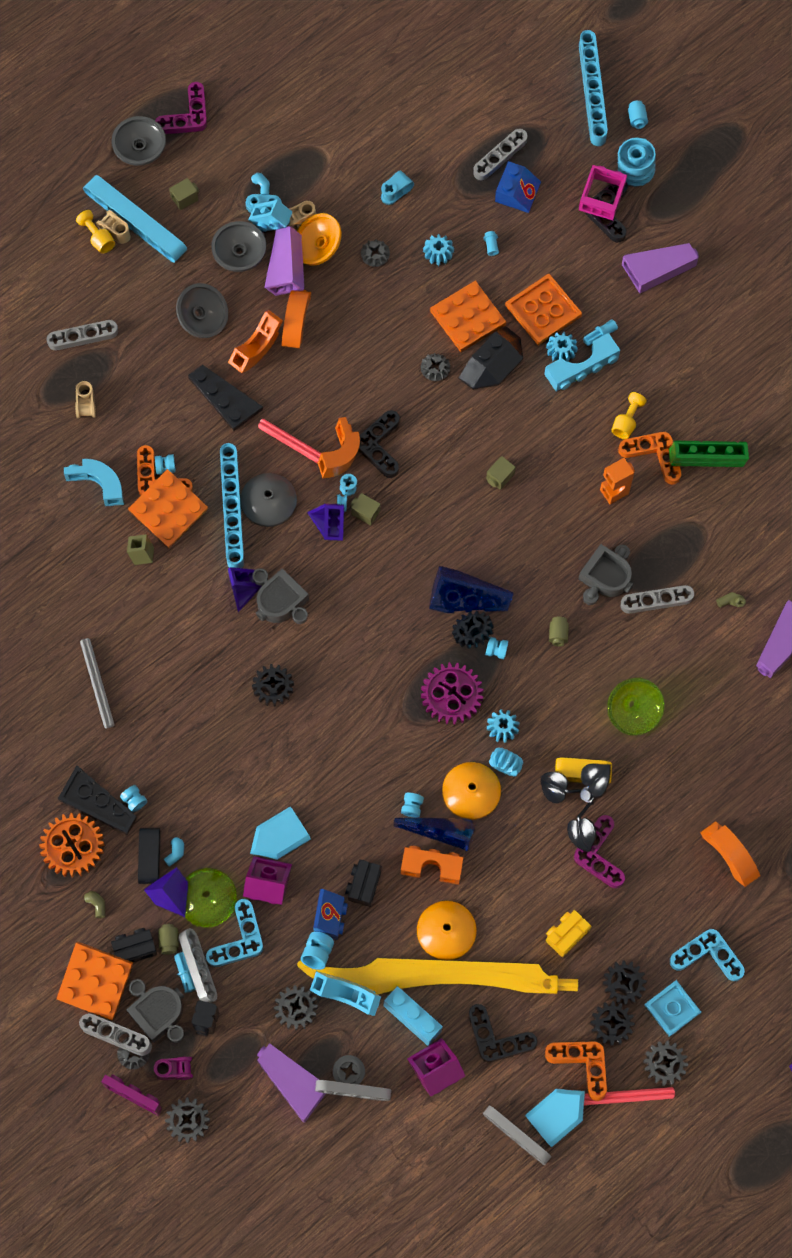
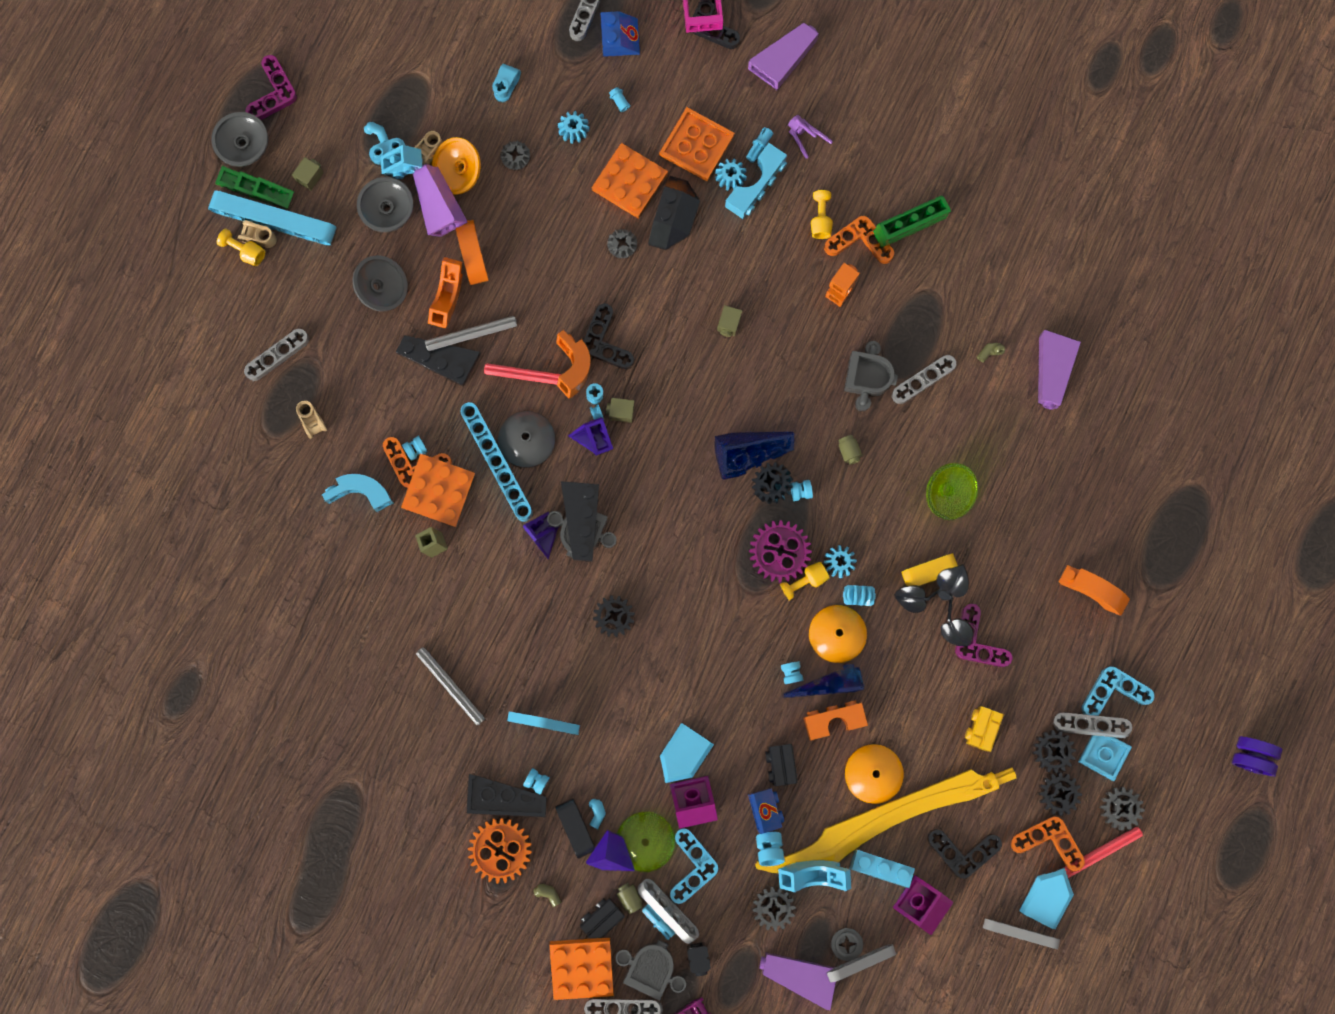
camera: 25 degrees left, 10 degrees up
(131, 187) = (254, 187): none -> green slope
(163, 744) = (543, 723): none -> medium azure beam
(263, 387) = (470, 333): none -> light grey axle
(286, 579) = (581, 516): none -> black wing
(474, 728) = (814, 574): none -> yellow piece
(645, 331) = (799, 126): none -> medium lavender plant
(670, 977) = (1092, 728): none -> light grey beam

